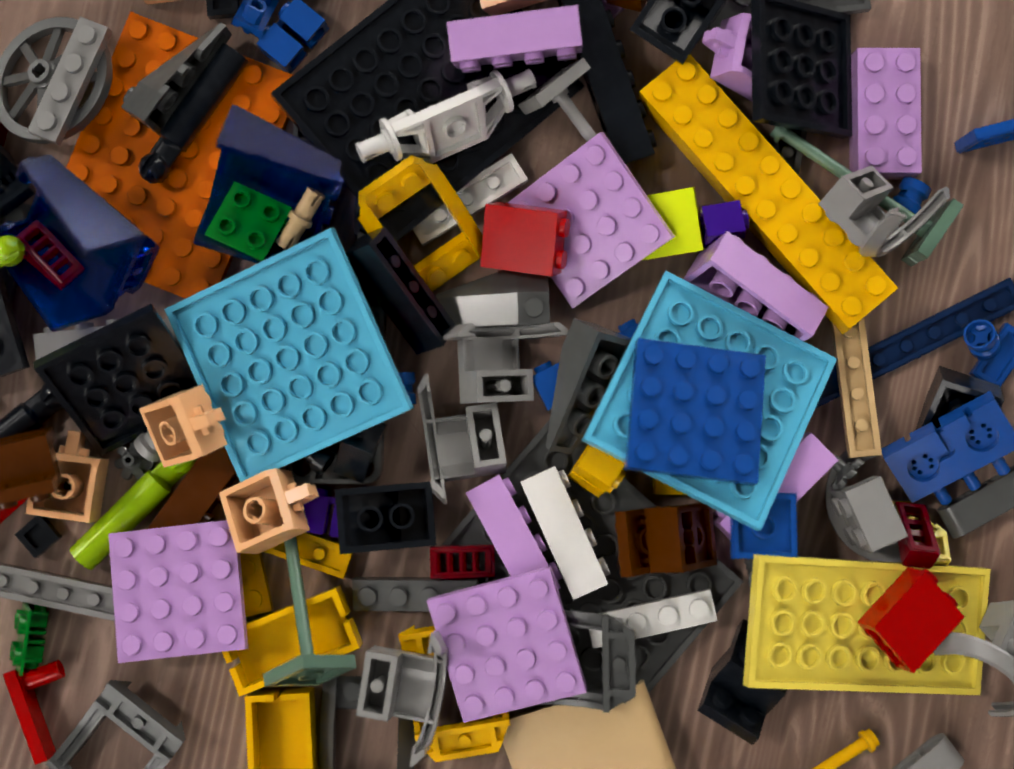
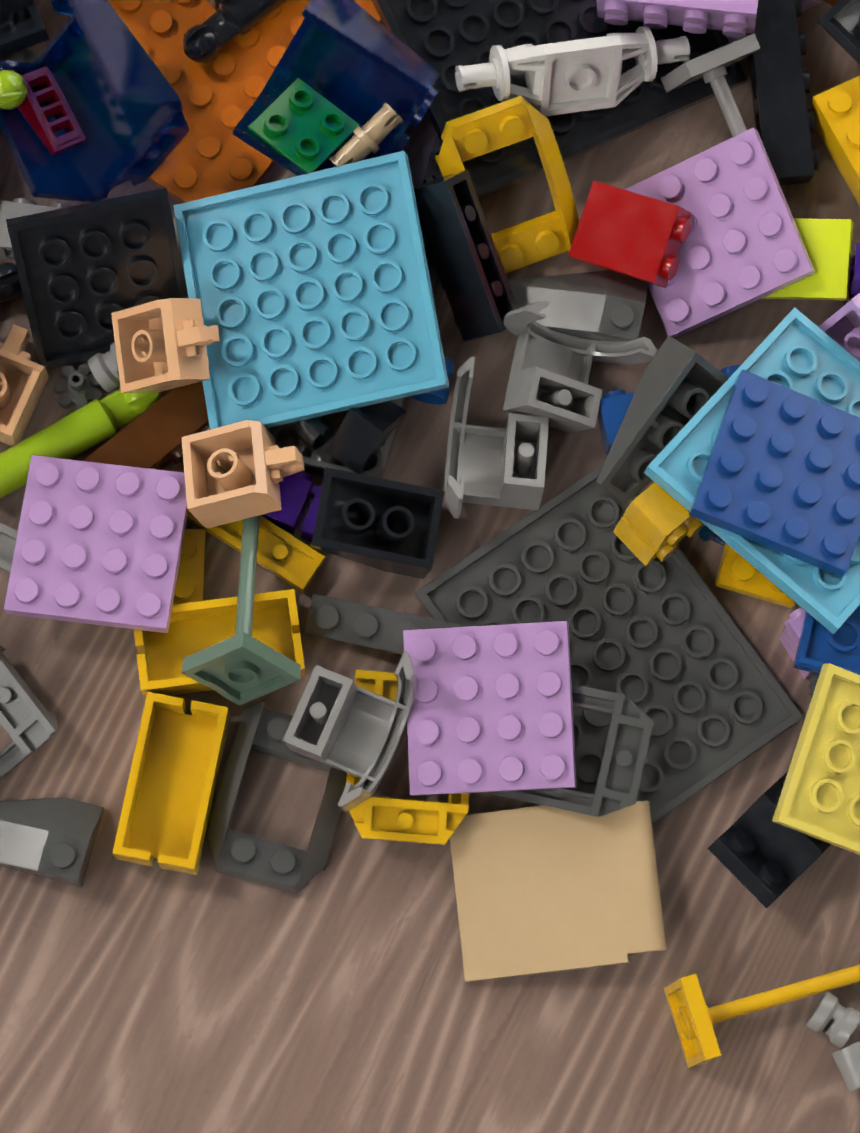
camera: 10 degrees right, 10 degrees down
(436, 573) = (447, 583): dark red slope -> none
(483, 189) = (608, 164): white plate -> none
(508, 527) = (525, 566): lavender brick -> none
(564, 532) = (594, 594): white brick -> none
(663, 615) = (693, 731): white plate -> none
(665, 539) = (719, 629): reddish brown bracket -> none

